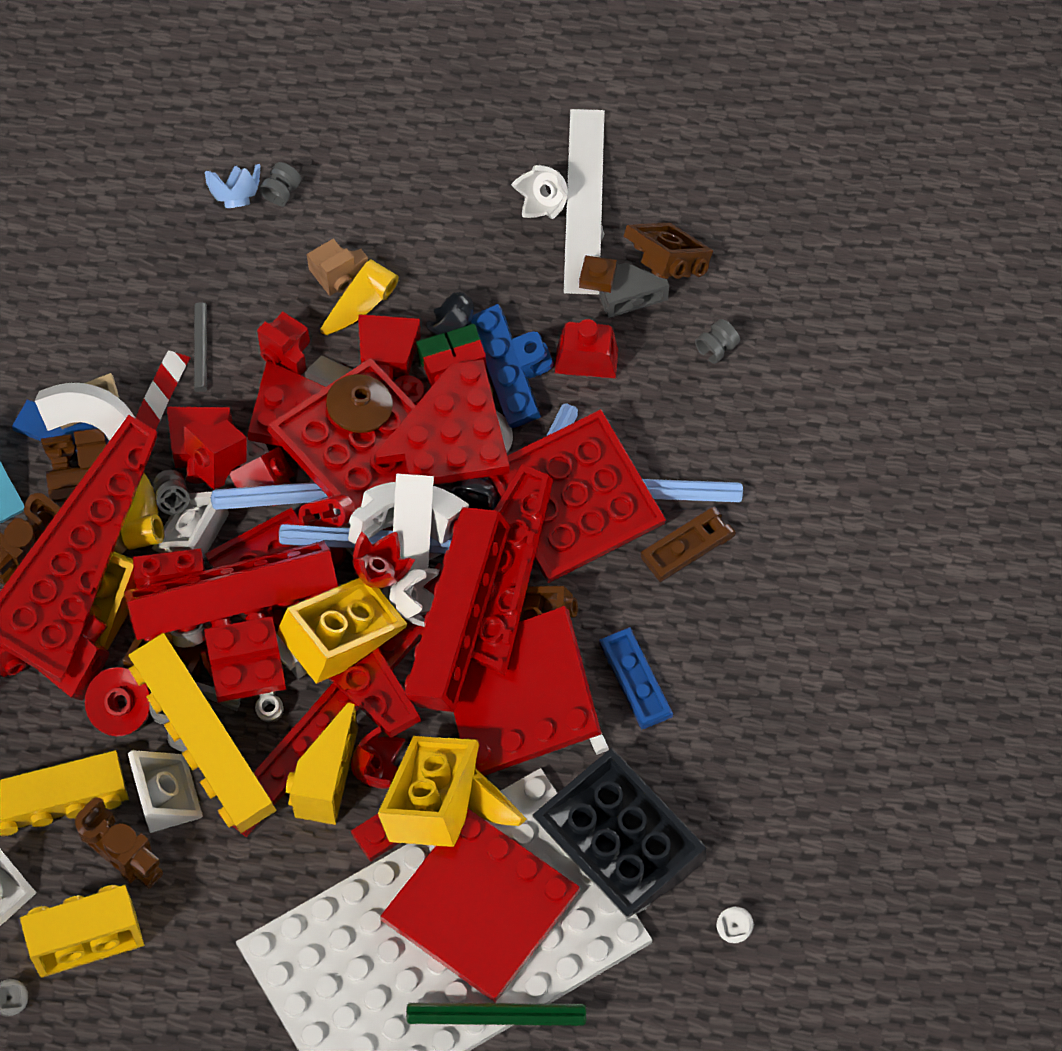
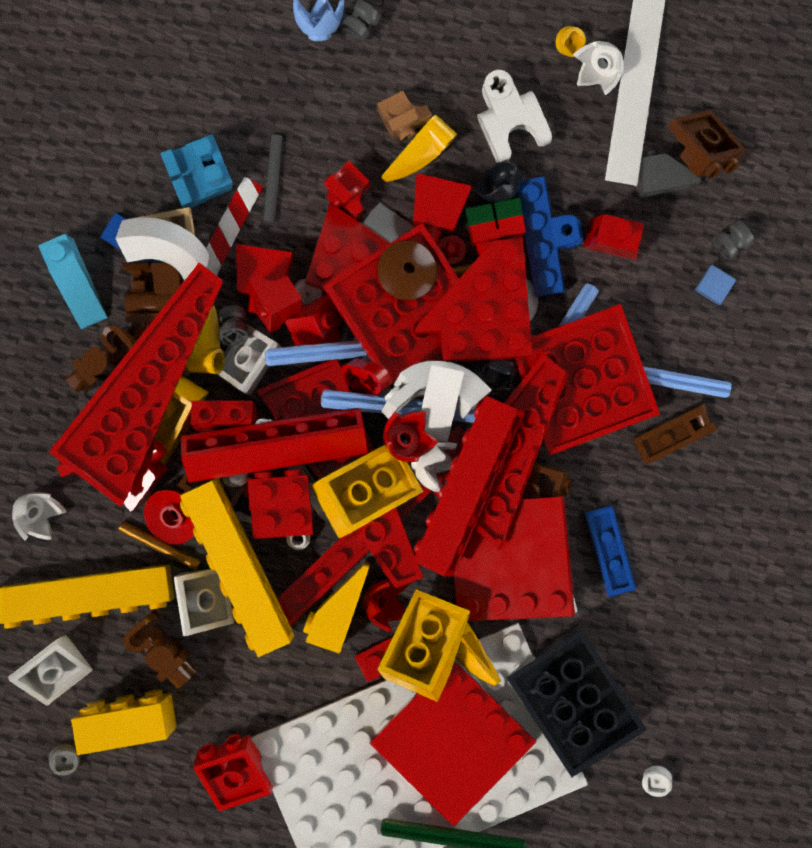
camera: 10 degrees right, 25 degrees up
(98, 738) = (158, 545): none -> pearl gold bar
(117, 344) = (197, 172): none -> dark azure hips
(218, 979) = (232, 772): none -> red plate
(453, 250) = (510, 112): none -> white piece
(505, 175) = (570, 40): none -> yellow tile
(597, 274) = (639, 166): reddish brown plate -> none
(706, 389) = (715, 284): none -> medium blue tile

